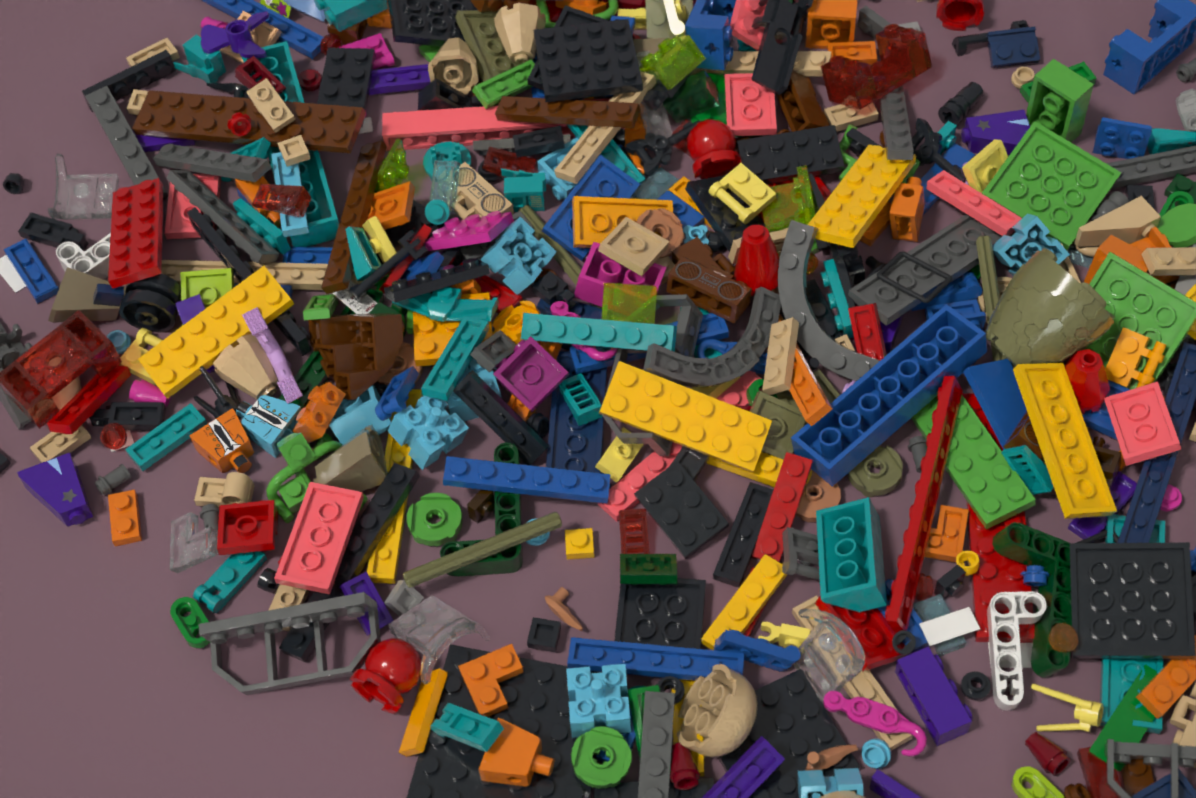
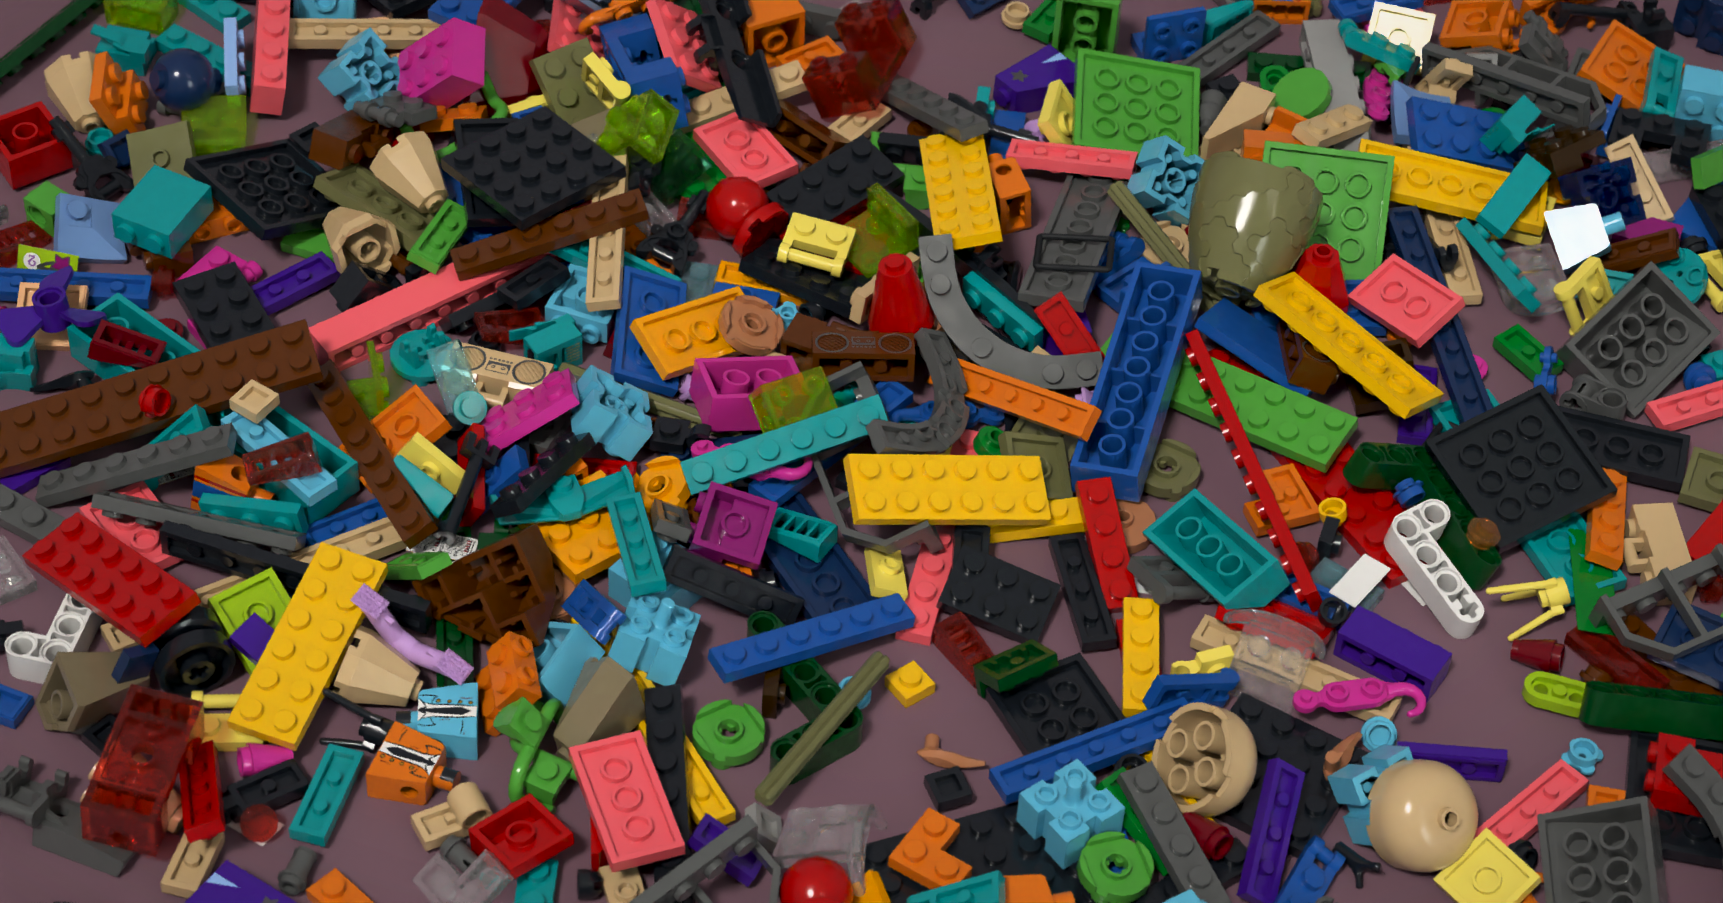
camera: 40 degrees left, 10 degrees down
(270, 105) = (179, 358): tan plate -> none
(633, 246) = (746, 344): tan plate -> none
(780, 356) = (993, 390): tan plate -> none
(918, 447) = (1200, 432): dark grey pin -> none
(957, 107) = (971, 67): black axle -> none
(972, 692) = (1424, 625): black plate -> none
(1037, 478) = (1351, 399): teal slope -> none
(1127, 356) = (1342, 234): light orange plate -> none

